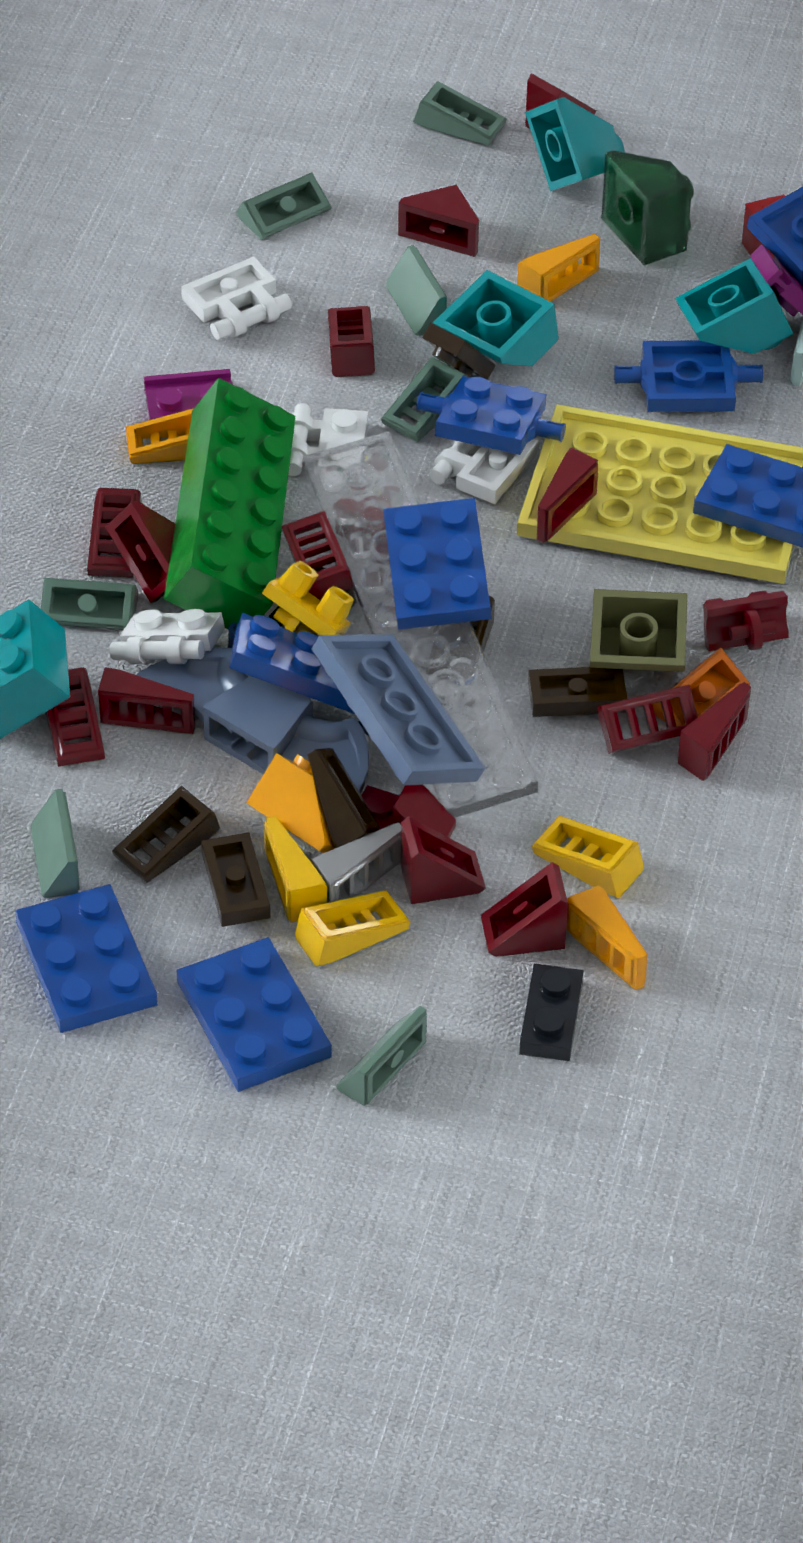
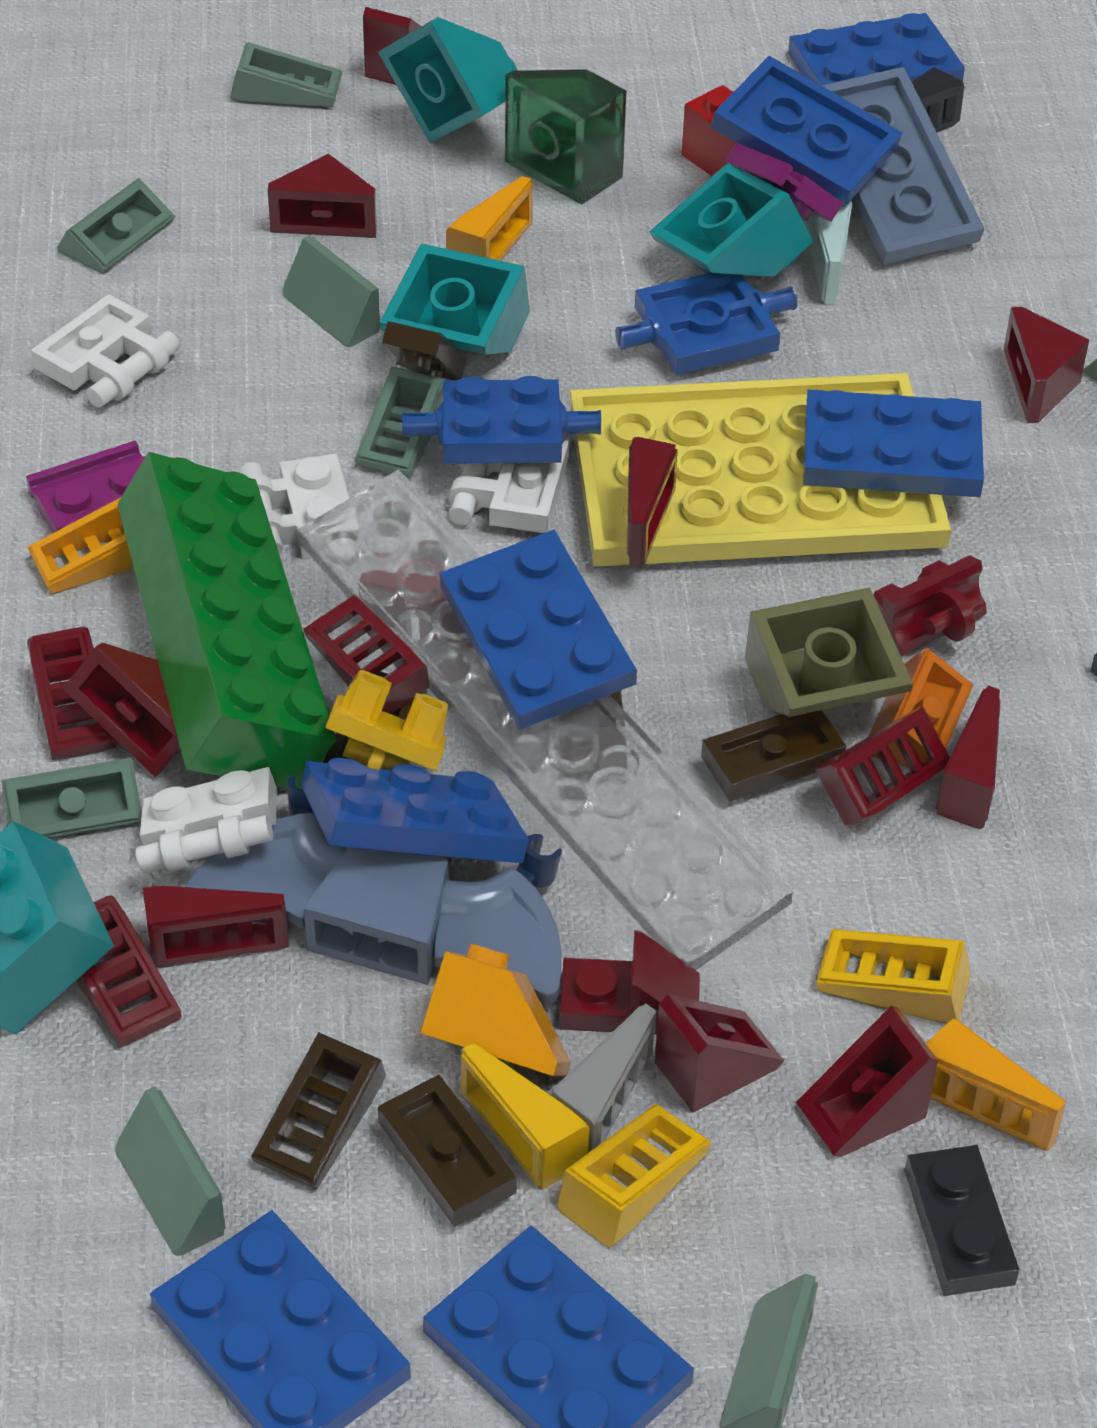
camera: 20 degrees left, 0 degrees up
(342, 804) = (564, 1007): dark brown slope -> none
(351, 341) = (274, 371): dark red slope -> none
(398, 709) = (580, 843): sand blue plate -> none

